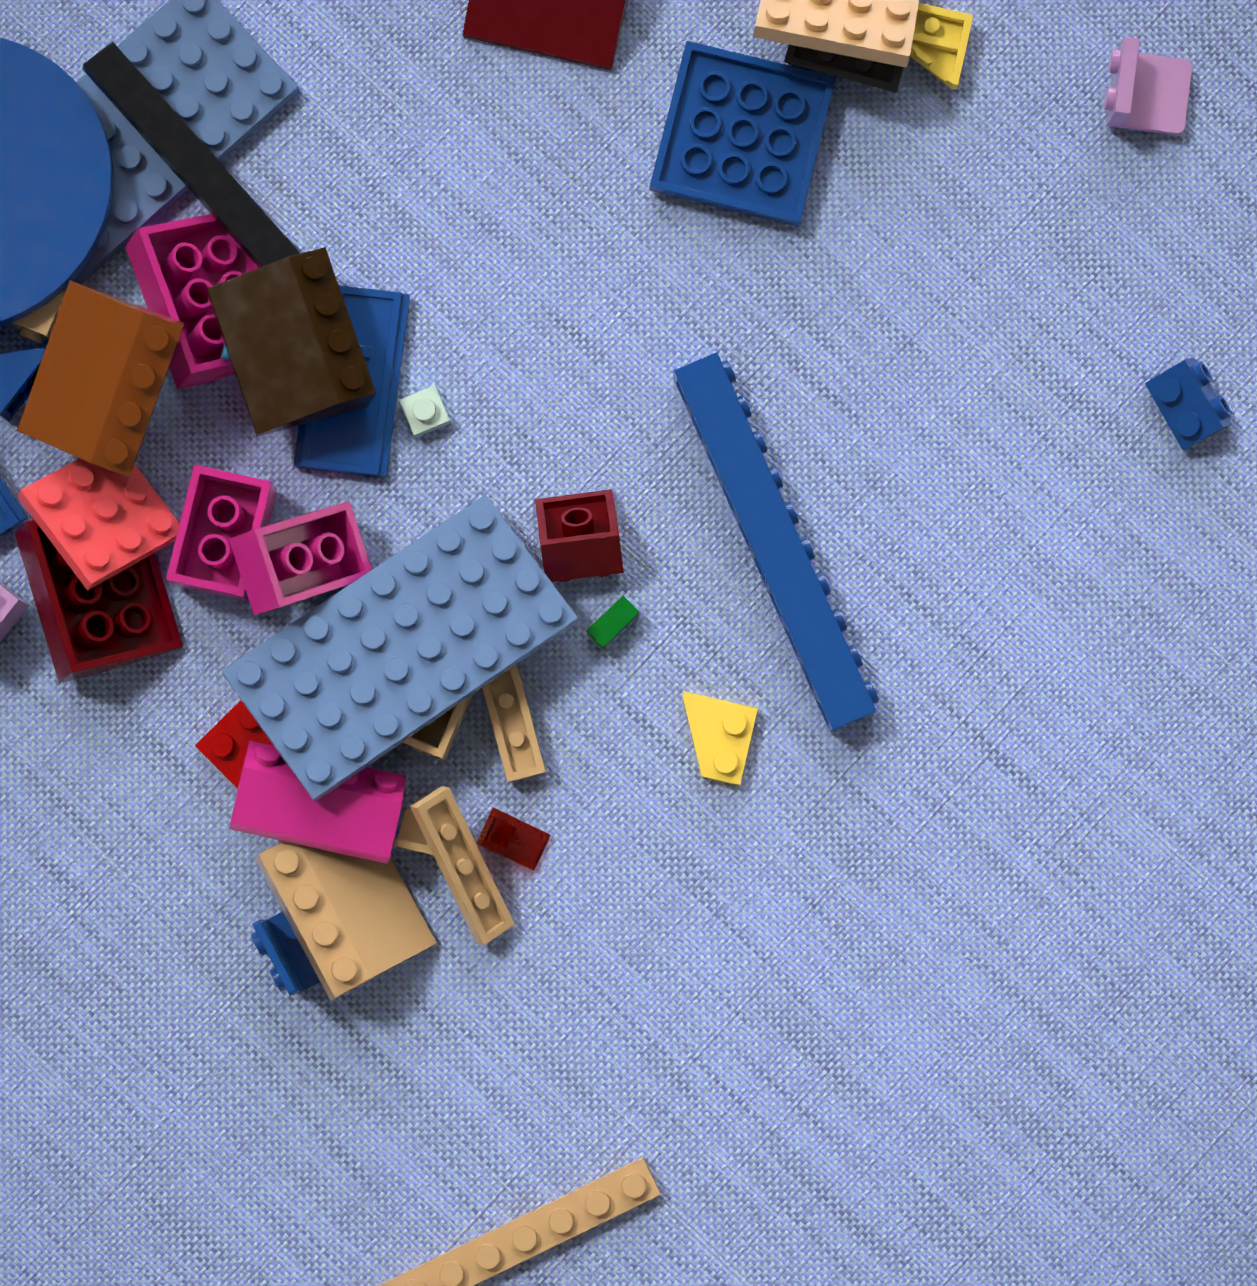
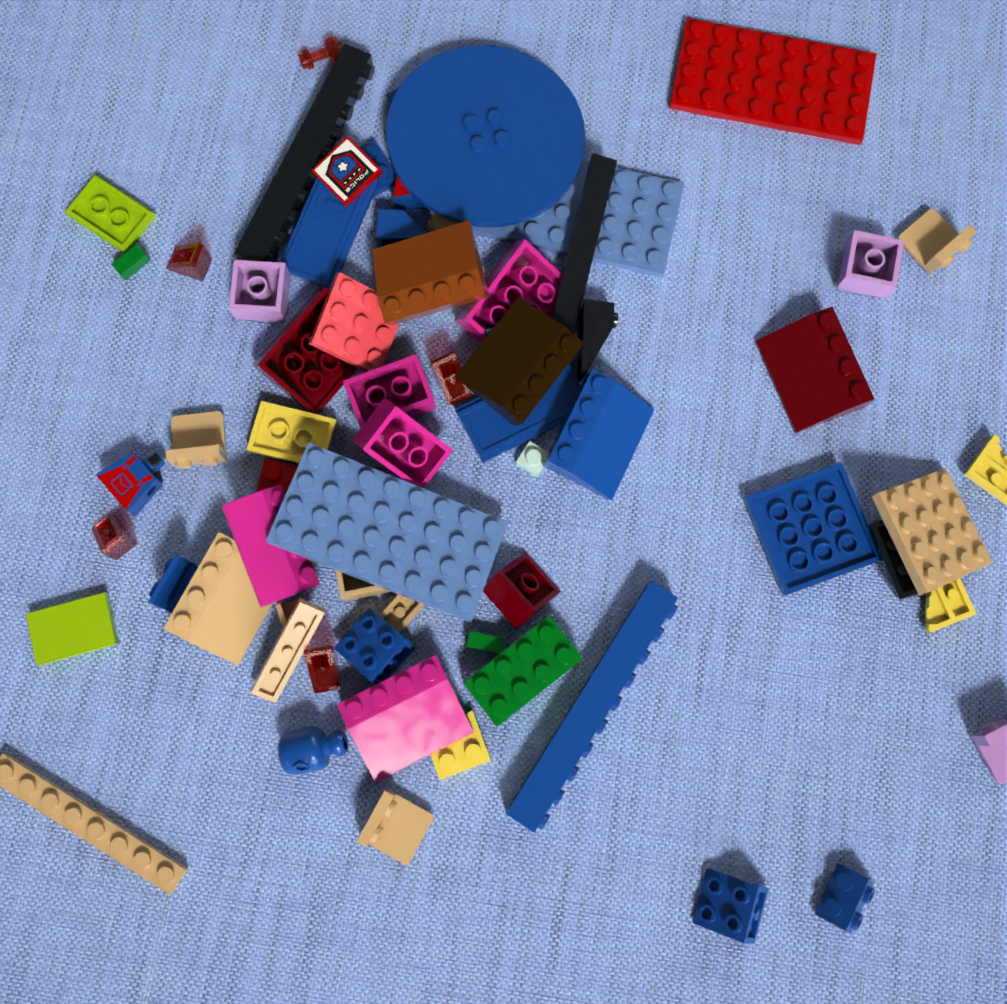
camera: 55 degrees right, 5 degrees down
(110, 927) = (133, 480): none -> torso
(112, 814) = (197, 440): none -> tan bracket
(165, 998) = (113, 537): none -> clear red slope
(183, 692) = (286, 431): none -> light yellow plate
(242, 448) = (444, 372): none -> clear red slope
(250, 1122) = (72, 629): none -> lime tile
(310, 221) = (595, 325): none -> black slope
(450, 309) = (599, 435): none -> blue slope
(528, 759) = (374, 647): none -> blue bracket
(600, 917) = (310, 749): none -> blue piece
(640, 776) = (405, 718): none -> slope
(679, 598) = (522, 671): none -> green brick
(762, 872) = (396, 827): none -> tan bracket
(1110, 540) = (730, 906): none -> blue bracket

